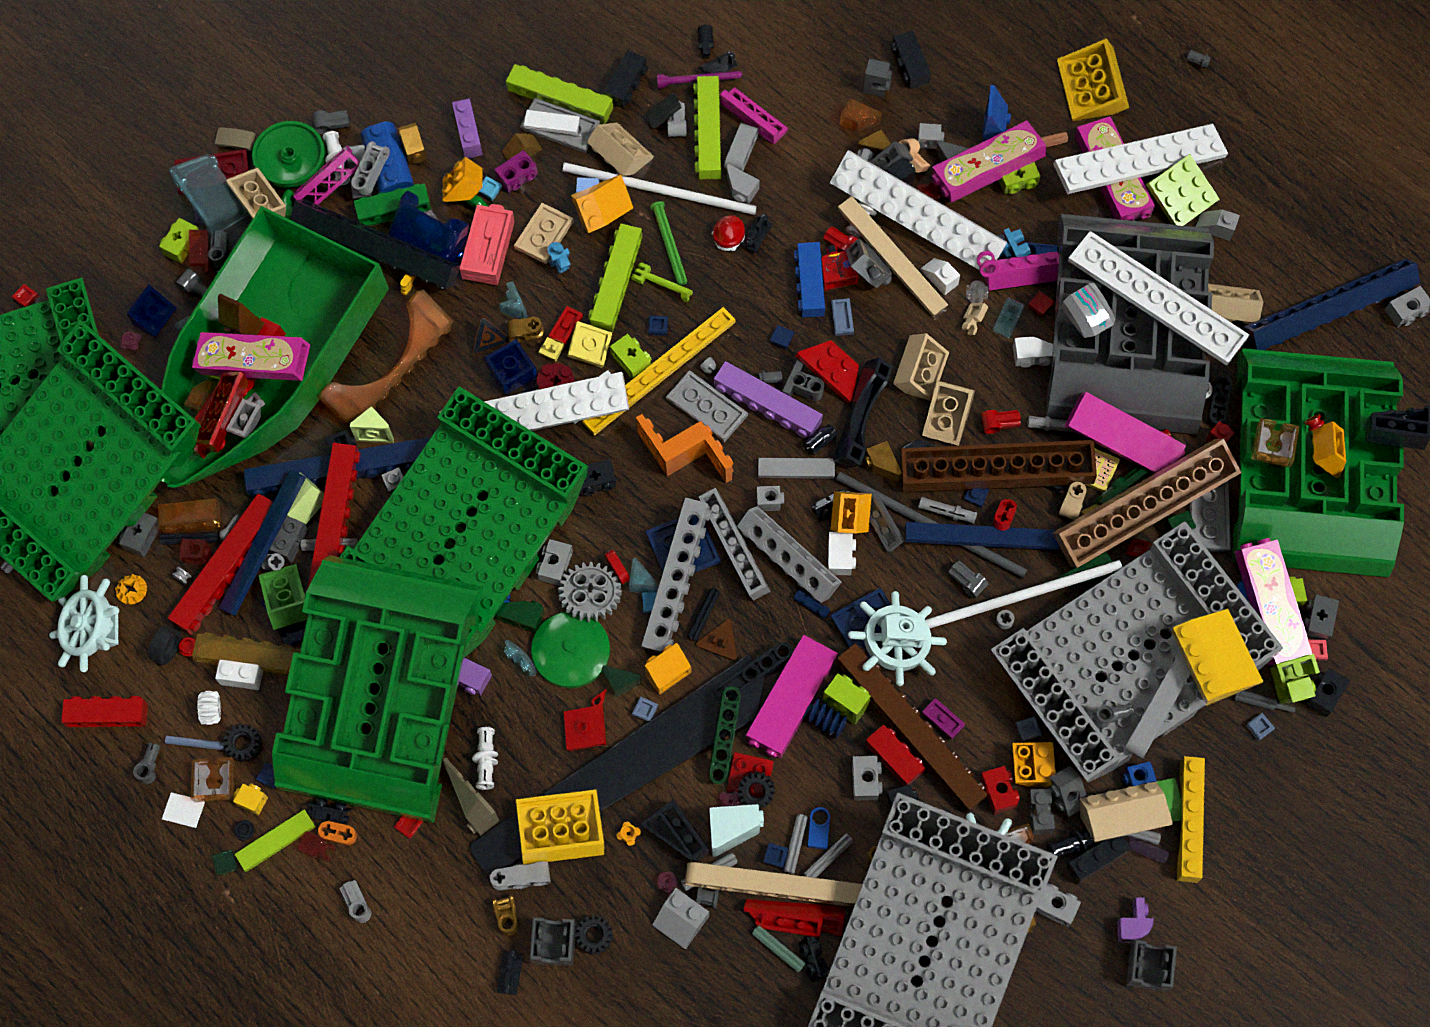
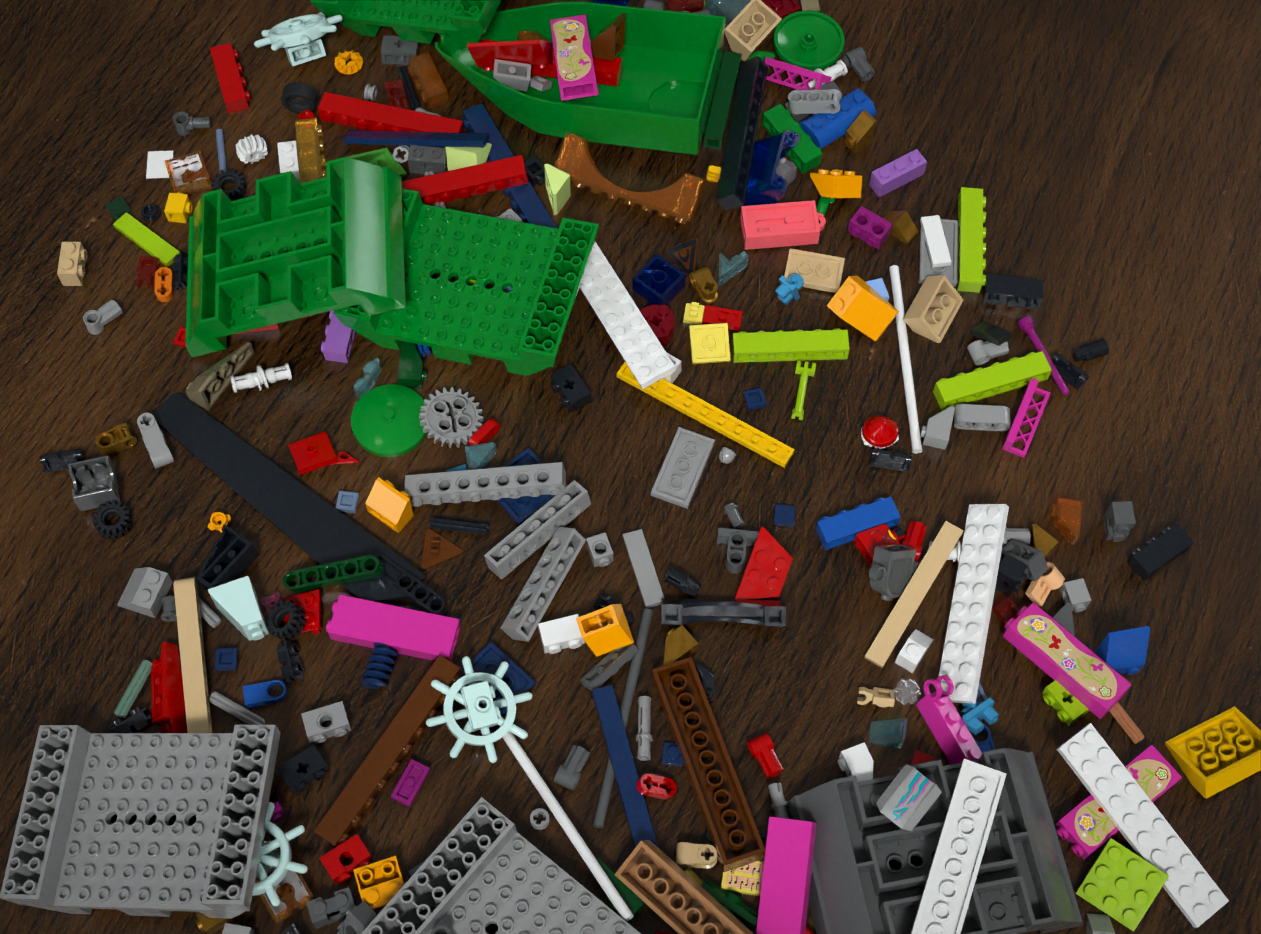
camera: 70 degrees right, 5 degrees down
(280, 920) = (72, 263): none -> tan brick
(490, 188) = (844, 212): medium azure tile -> none
(557, 551) = (478, 386): light grey brick -> none
(560, 827) = (207, 457): yellow slope -> none
(620, 680) = (368, 467): clear green slope -> none
(630, 356) = (710, 381): lime brick -> none
(667, 876) = (175, 565): clear pink plate -> none
(669, 242) = (847, 383): bright green axle -> none
(684, 448) = (624, 455): orange bracket -> none
(767, 400) = (706, 520): medium lavender brick -> none
(795, 844) = (246, 675): light grey axle -> none
(803, 798) = (289, 653): none -> black hinge
(811, 603) = (496, 633): dark blue axle -> none
(842, 317) = (829, 567): sand blue tile -> none
(846, 698) = (401, 677): lime brick -> none
(895, 755) = (356, 744): red brick -> none
(921, 366) = (798, 658): tan slope -> none
(948, 412) = (757, 698): tan slope -> none

